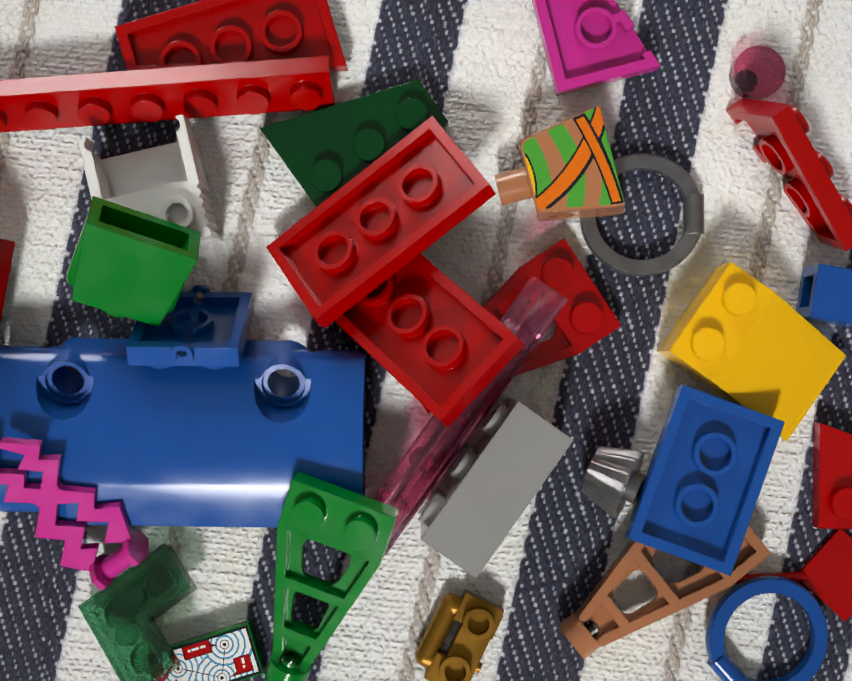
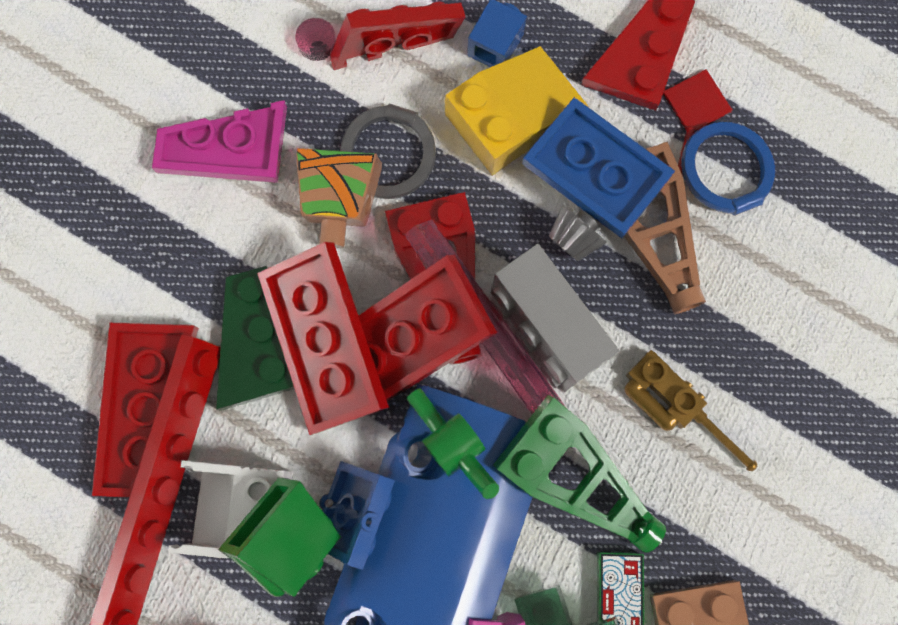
camera: 75 degrees left, 10 degrees down
(300, 420) = (453, 444): none -> green piece

